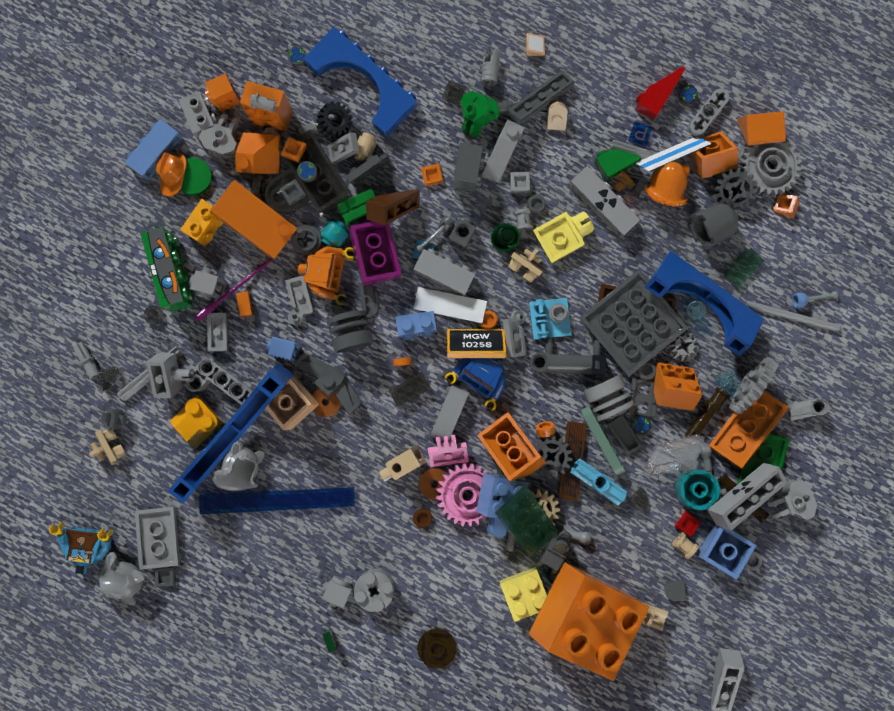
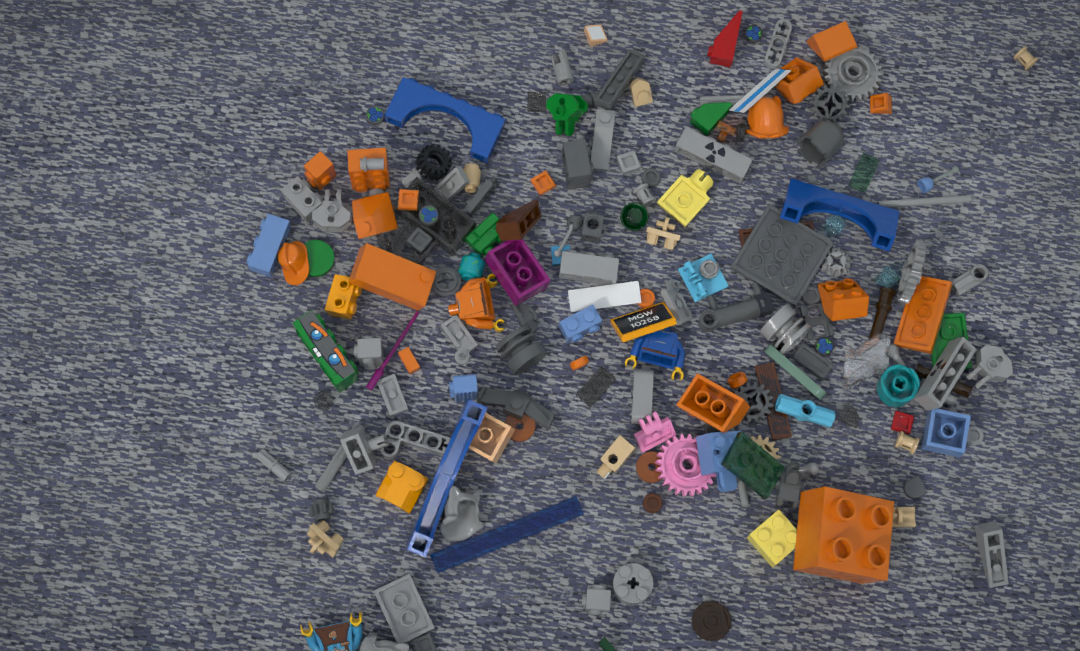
camera: 25 degrees left, 10 degrees down
(108, 377) = (300, 473): clear smoke tile -> none
(640, 133) = (722, 83): clear blue tile -> none

